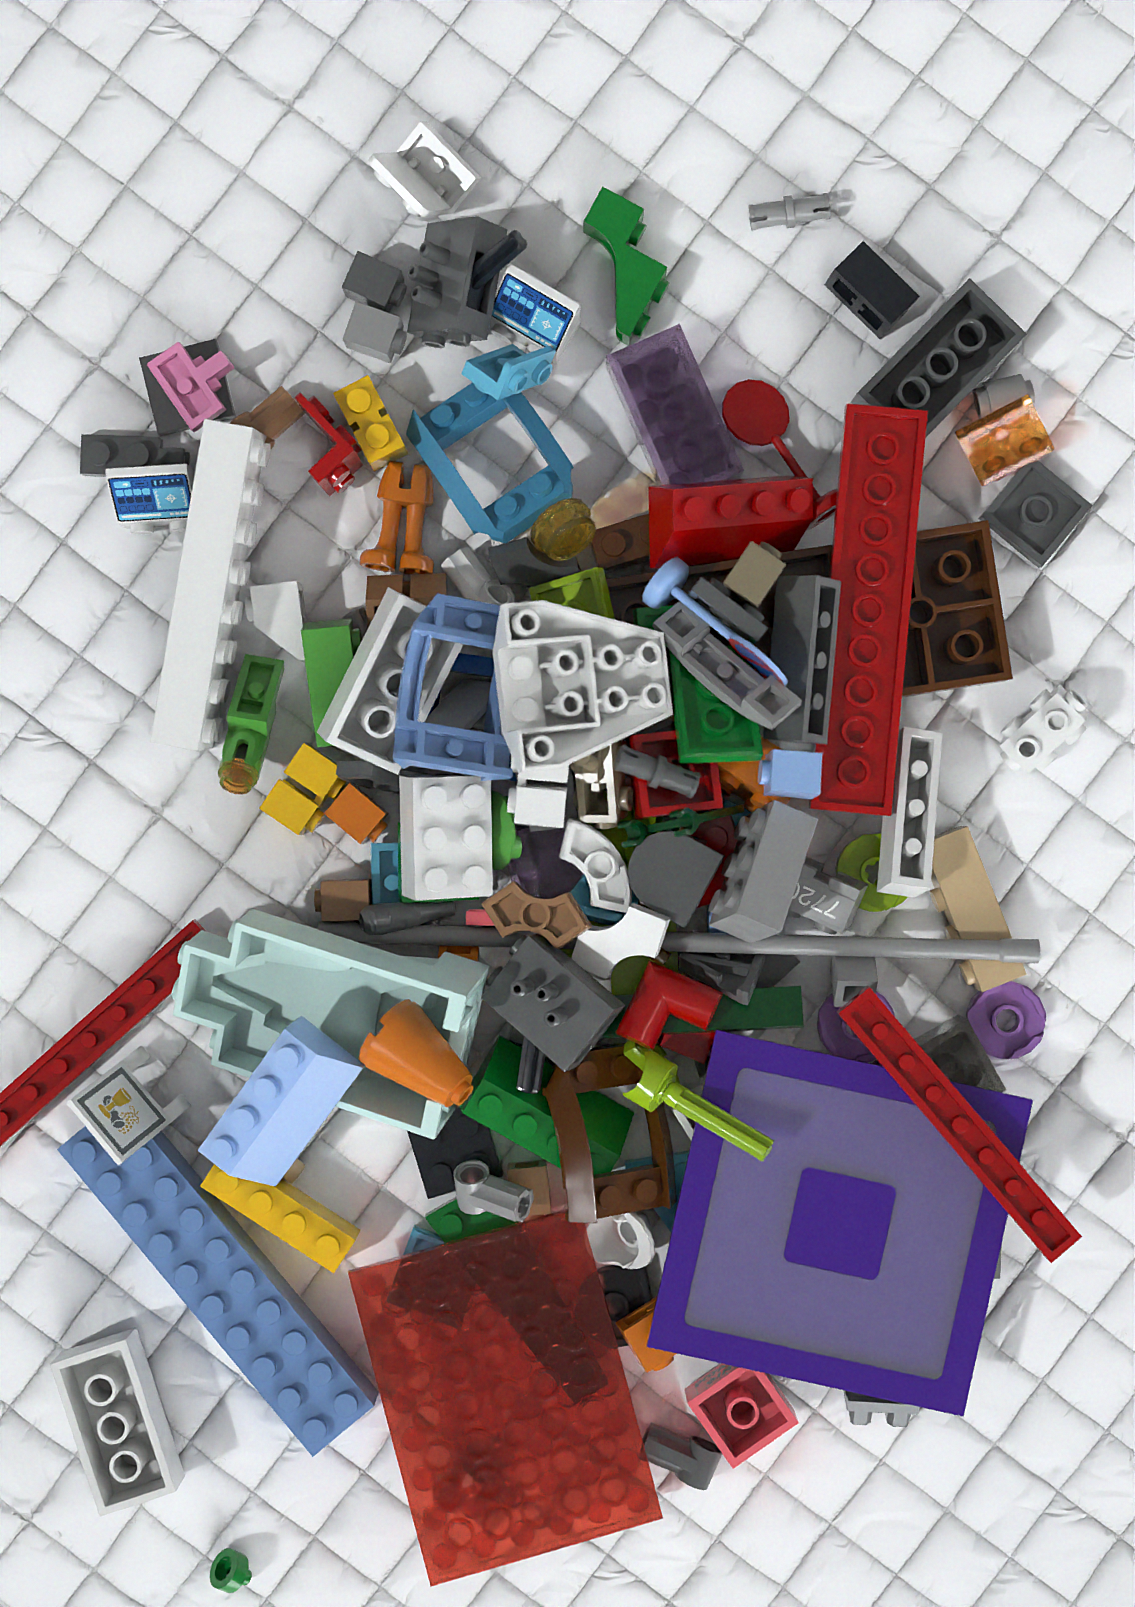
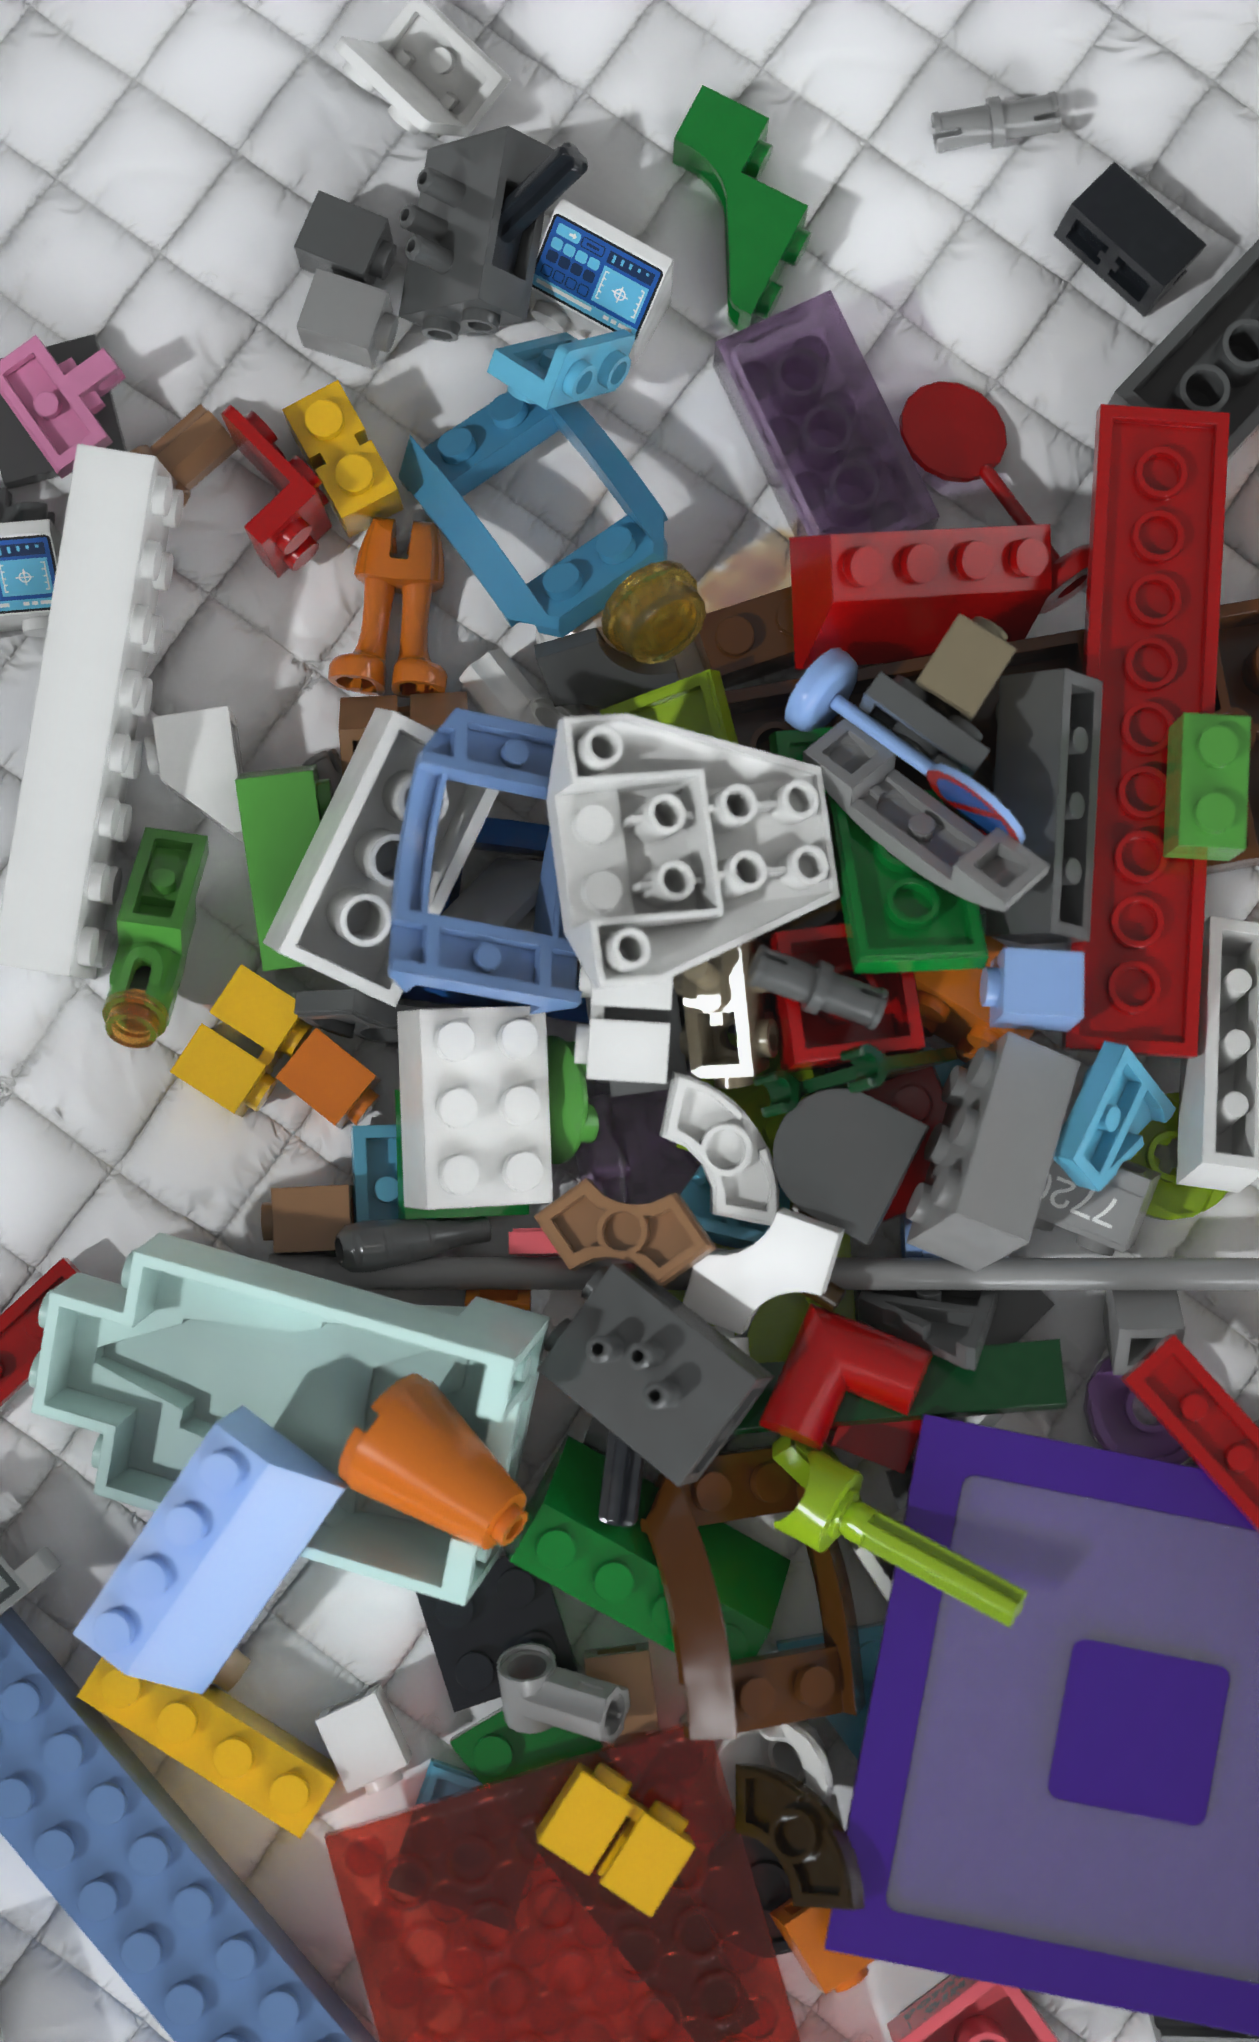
camera: 10 degrees left, 5 degrees down
(373, 1215) = (365, 1741): none -> white brick
(540, 1288) = (644, 1855): none -> yellow piece
(634, 1278) = (802, 1836): none -> dark brown tile
(834, 852) = (1108, 1115): none -> medium azure wing
(902, 650) = (1207, 786): none -> bright green brick

